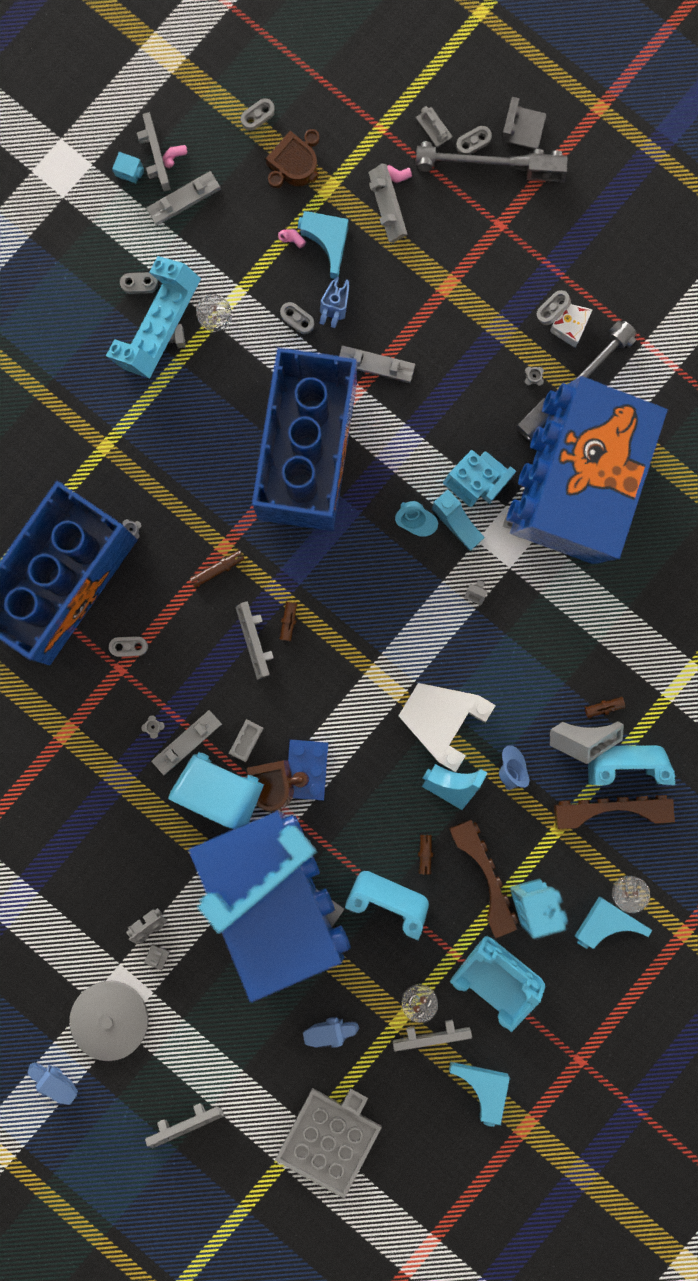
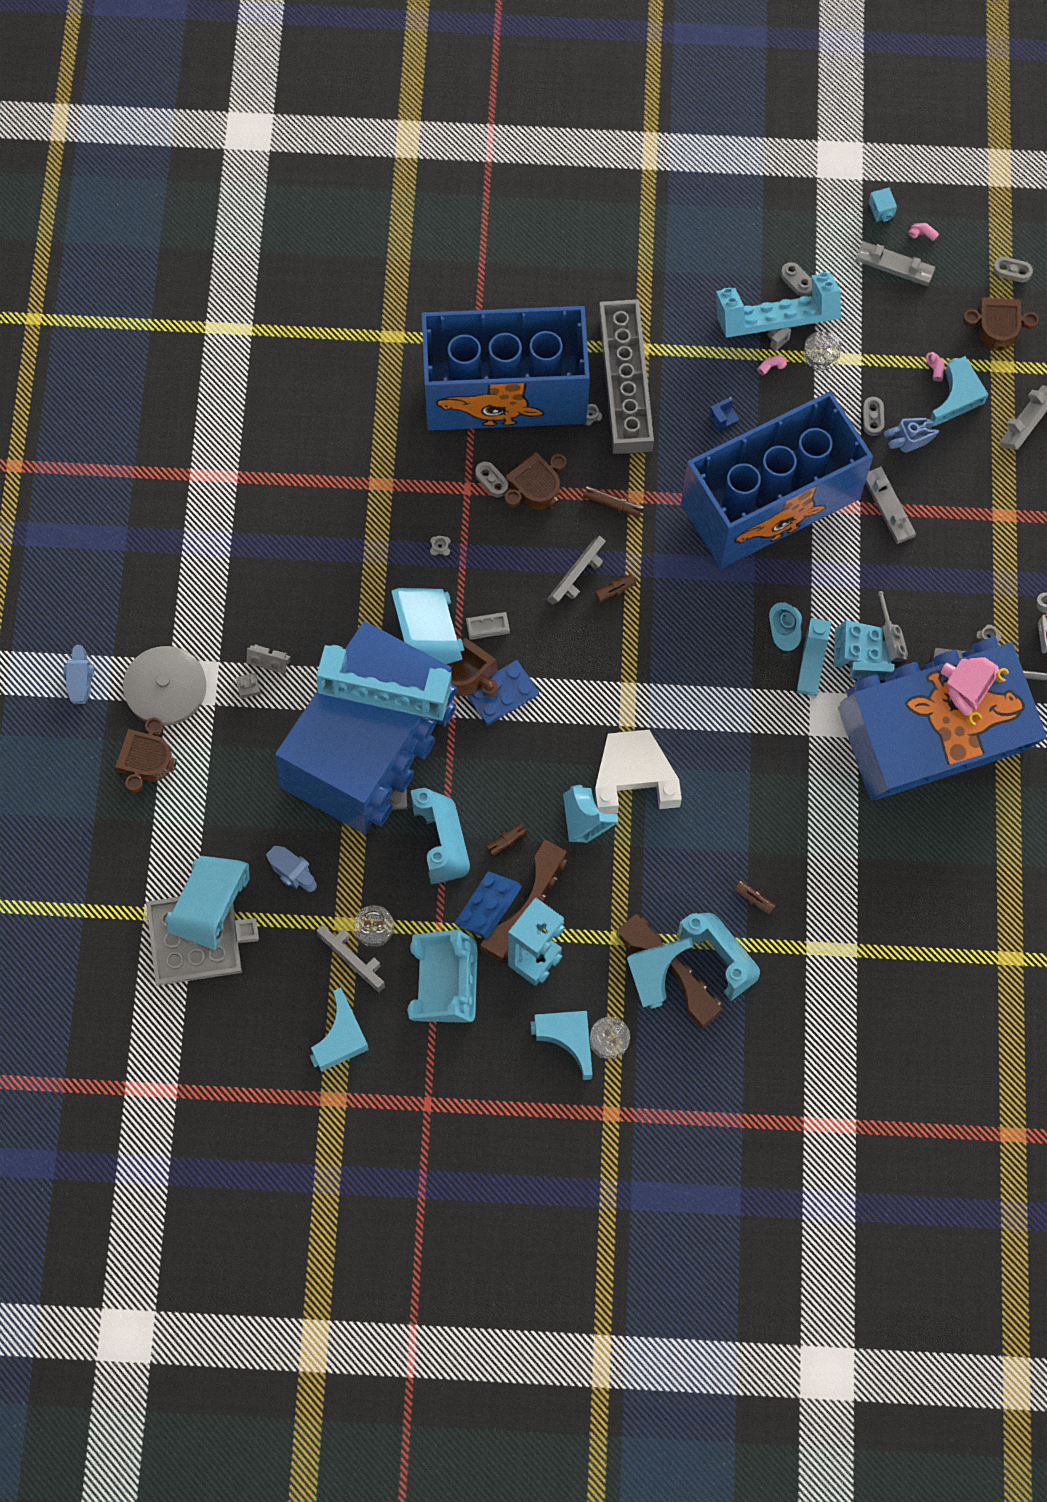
camera: 45 degrees right, 15 degrees down
(122, 479) = (626, 377): none -> light grey brick
(149, 135) = (922, 203): light grey hinge -> none
(157, 616) = (535, 482): none -> reddish brown piece
(157, 1078) = (145, 756): none -> reddish brown piece
(169, 1133) = (106, 800): light grey hinge -> none
(186, 742) = (449, 581): light grey hinge -> none
(193, 357) = (770, 362): none -> bright pink arm
(209, 429) = (723, 414): none -> blue panel
(309, 1115) = (207, 899): none -> medium azure windscreen
(467, 908) = (488, 905): none -> blue plate
(476, 592) = (764, 719): light grey tile -> none
(483, 446) = (893, 636): none -> light grey piece
(514, 769) = (639, 857): medium blue piece -> none
(584, 742) = (713, 900): light grey arch -> none
(592, 434) = (970, 683): none -> bright pink torso
(604, 824) = (650, 970): none -> medium azure arch

